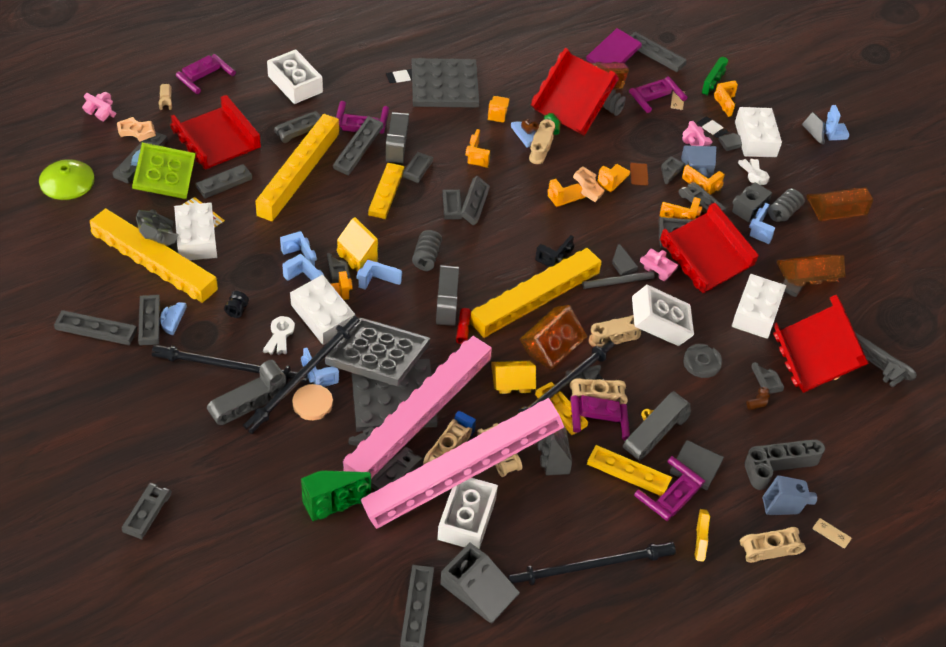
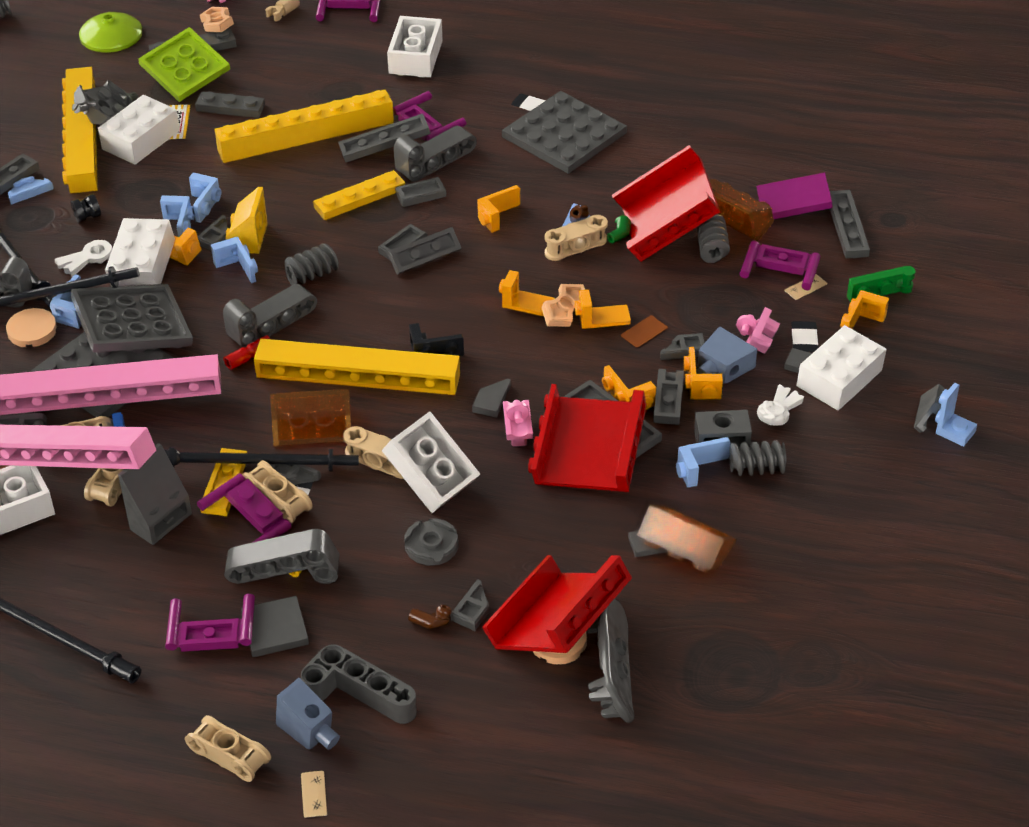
camera: 50 degrees right, 5 degrees down
(217, 134) = (277, 62): red panel -> none
(296, 126) = (349, 89): dark grey plate -> none
(498, 108) = (574, 186): light orange bracket -> none
(514, 376) = (222, 422): yellow slope -> none
(618, 280) = (461, 412): dark grey bar -> none
(629, 470) = (200, 578): yellow plate -> none
(702, 535) = (159, 688): yellow tile -> none
(758, 306) = (566, 529): white brick -> none
(841, 203) = (833, 499): clear orange slope -> none

